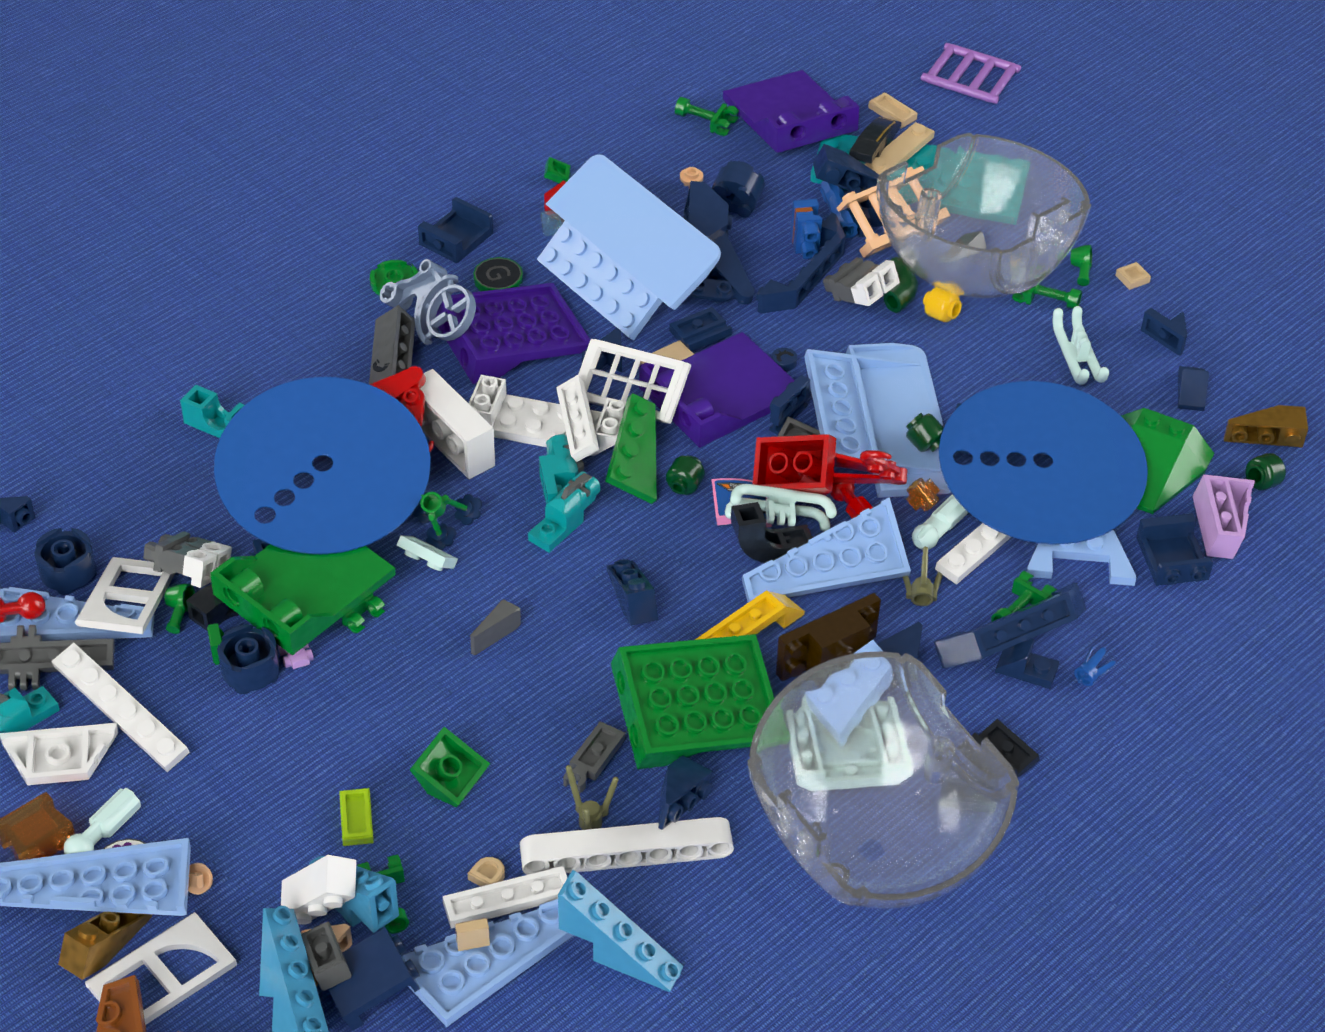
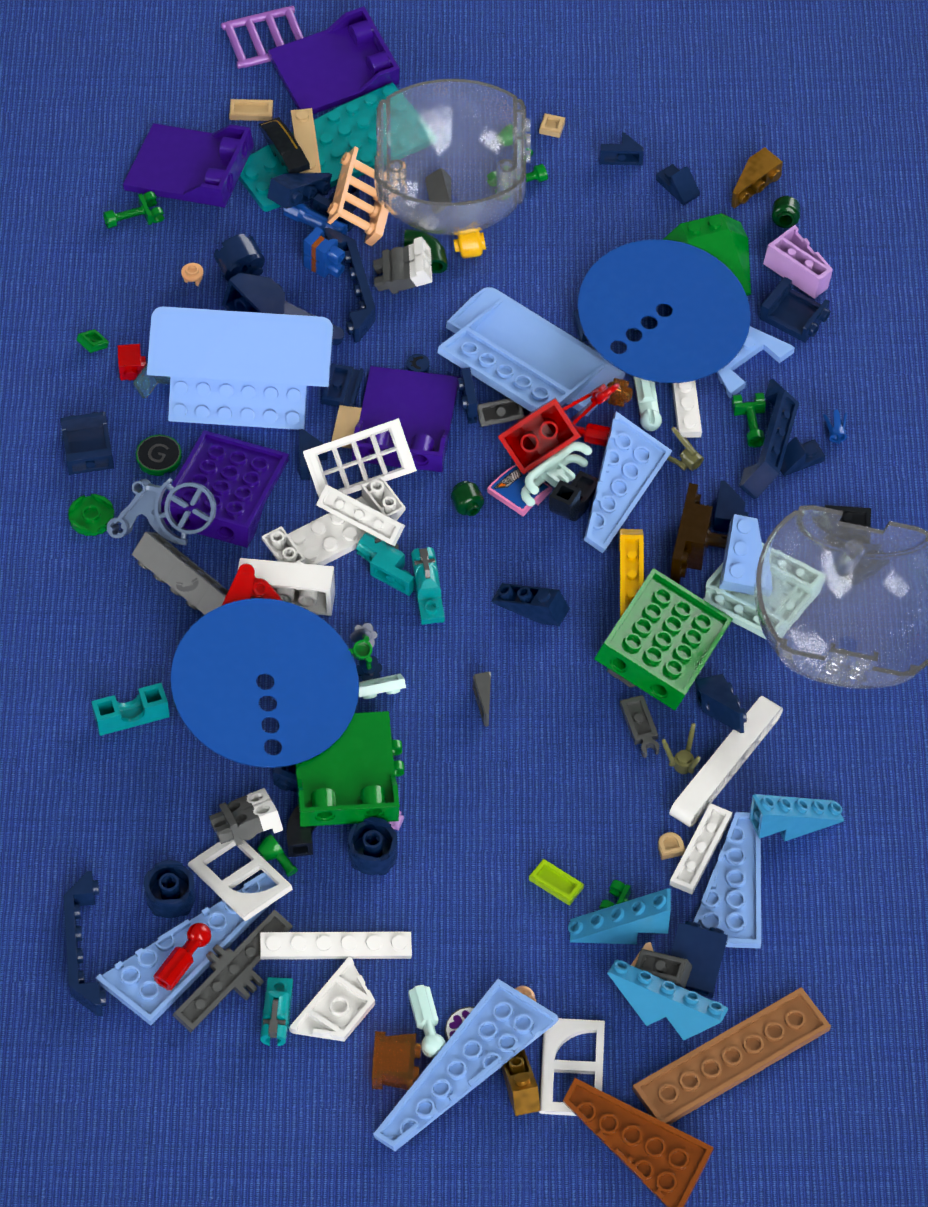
camera: 45 degrees left, 10 degrees up
(215, 637) = (336, 856): green tile -> none
(319, 887) = (616, 936): white brick -> none
(448, 768) = (573, 805): green slope -> none
(472, 934) = (721, 884): tan tile -> none
(634, 452) = (424, 510): green wing -> none
(924, 432) = (573, 347): dark green head -> none
(1001, 112) = (336, 63): none -> dark purple piece
(1078, 349) = (585, 209): light aqua piece -> none

